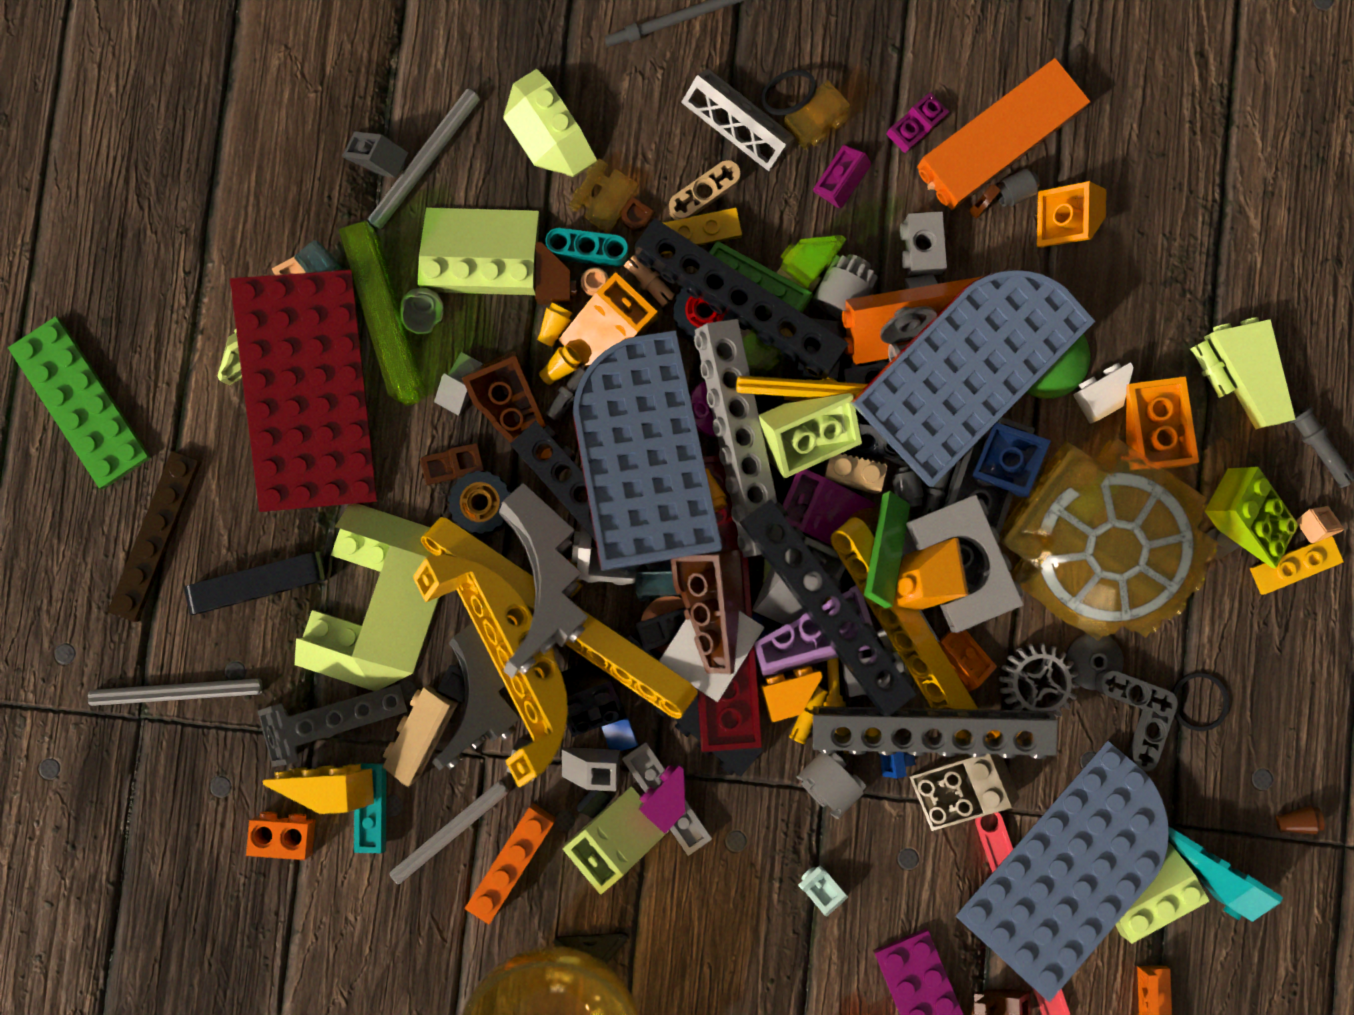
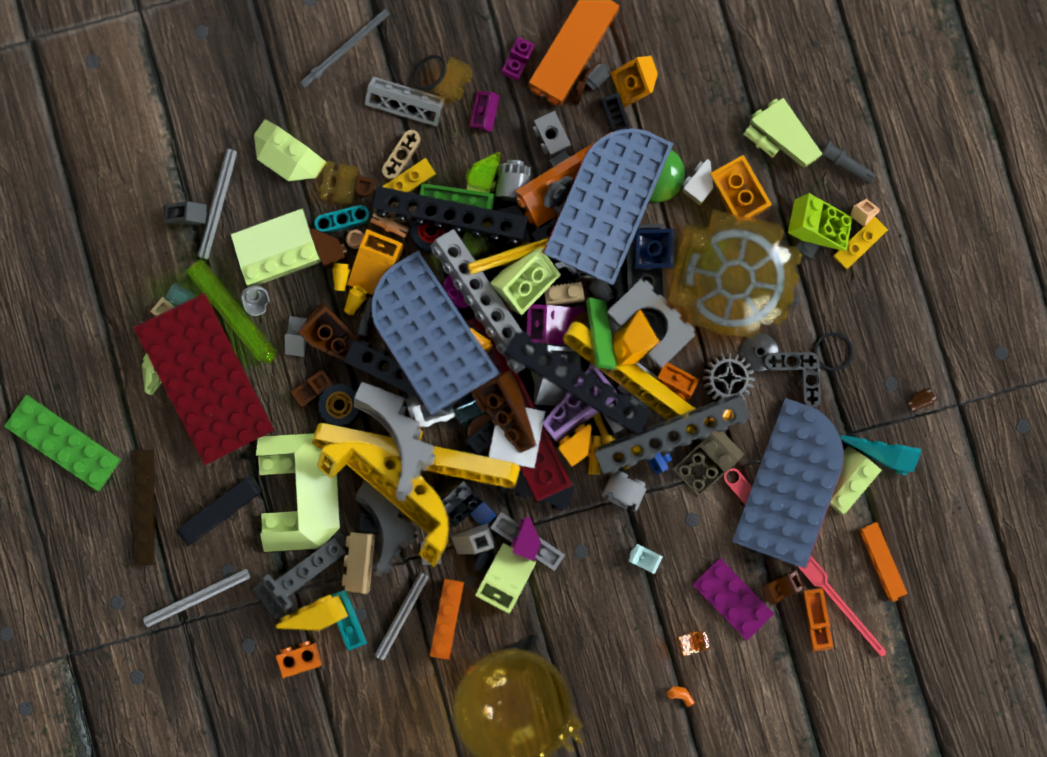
camera: 15 degrees left, 0 degrees up
(1033, 239) = (621, 111): none -> black slope

